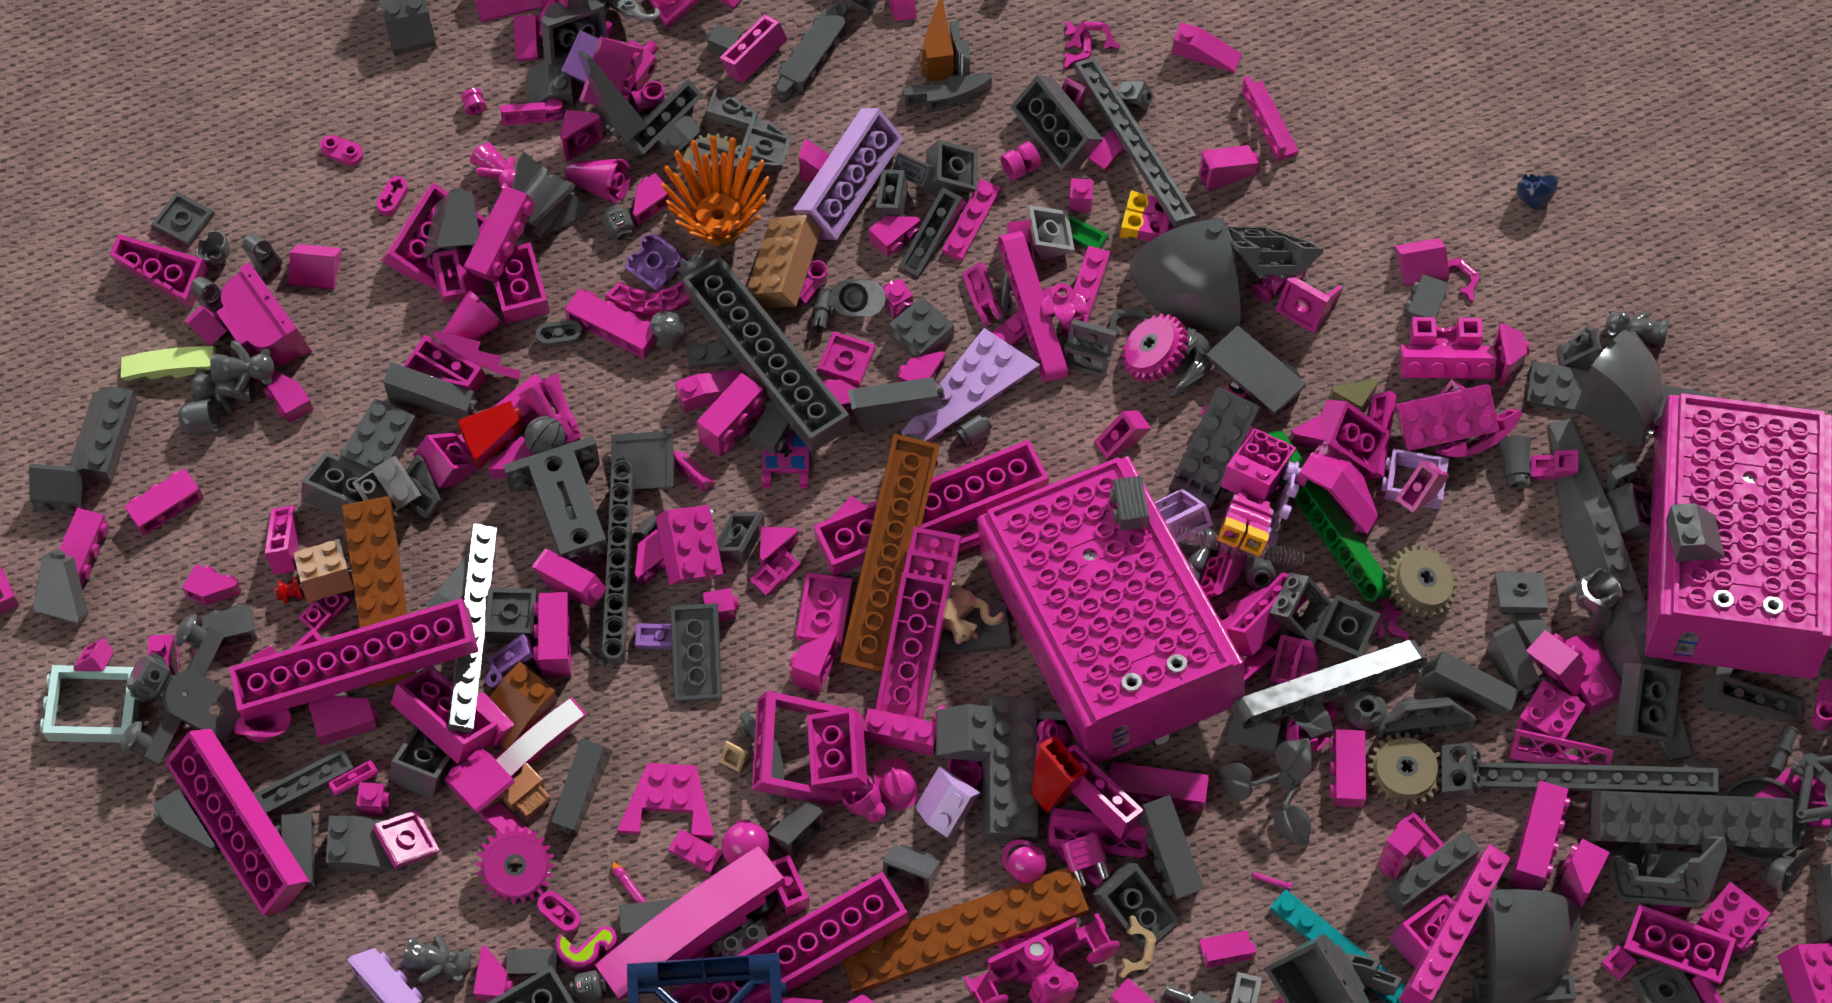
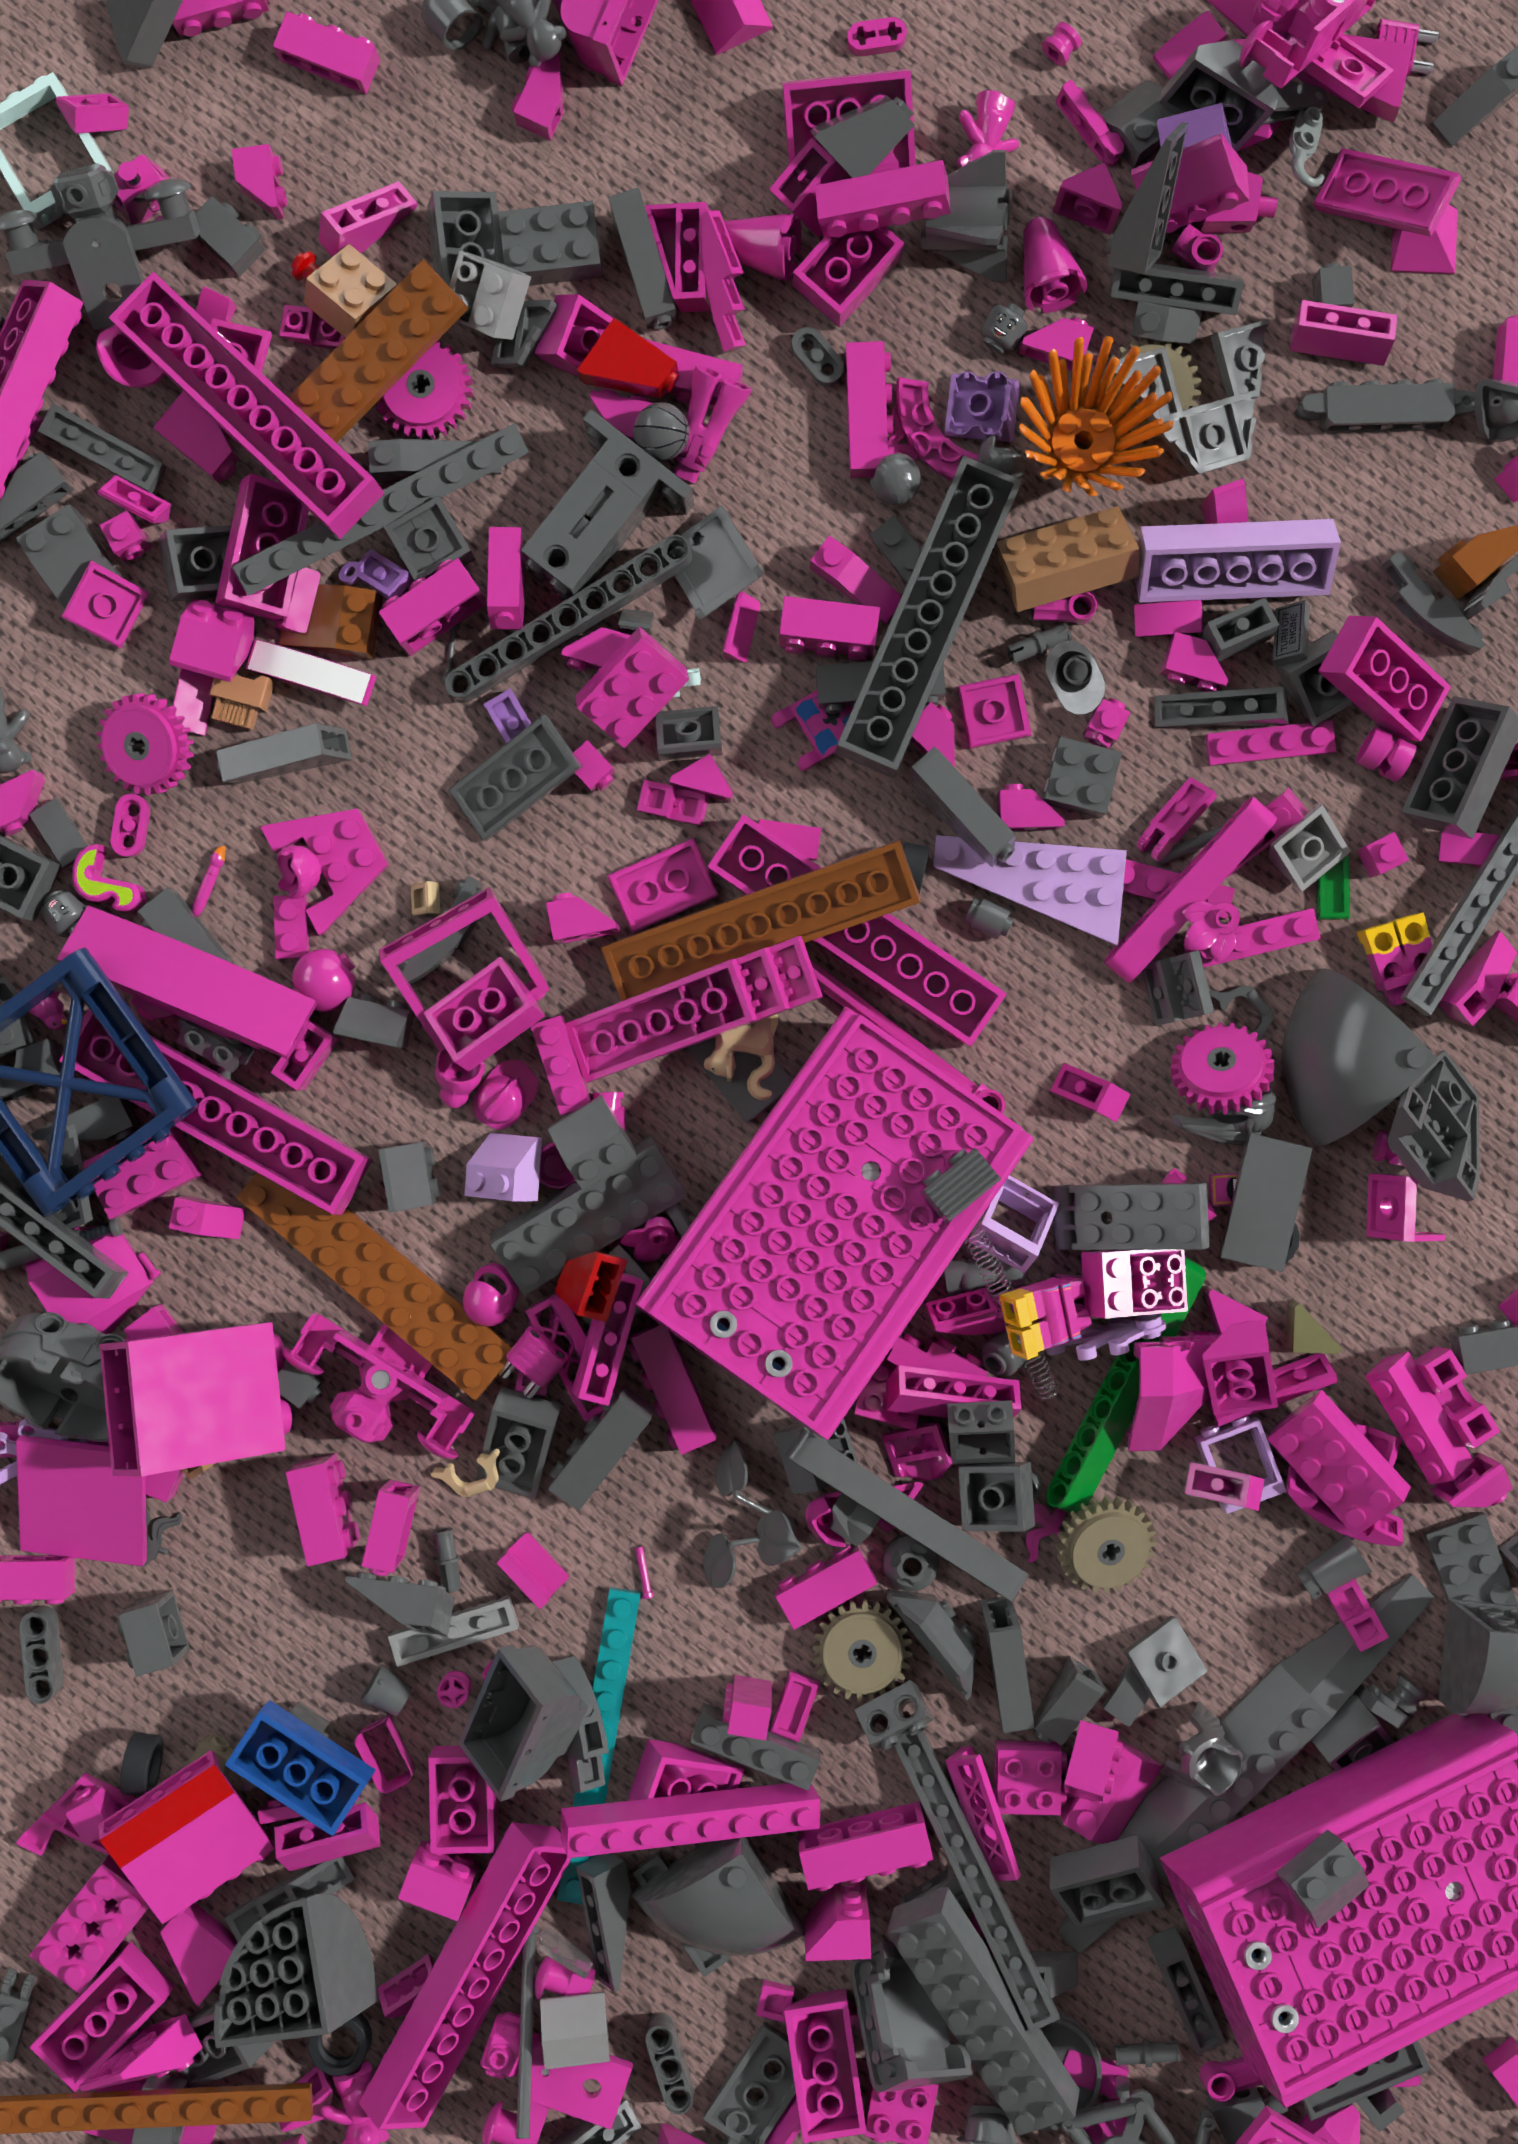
camera: 55 degrees right, 25 degrees up
(429, 564) = (440, 402): none -> dark pink gear
(663, 820) = (299, 870): none -> dark pink hair
(856, 231) = (1168, 618): none -> dark pink slope
(974, 132) = (1384, 677): none -> dark pink brick
(1194, 186) = (1479, 981): none -> dark pink slope

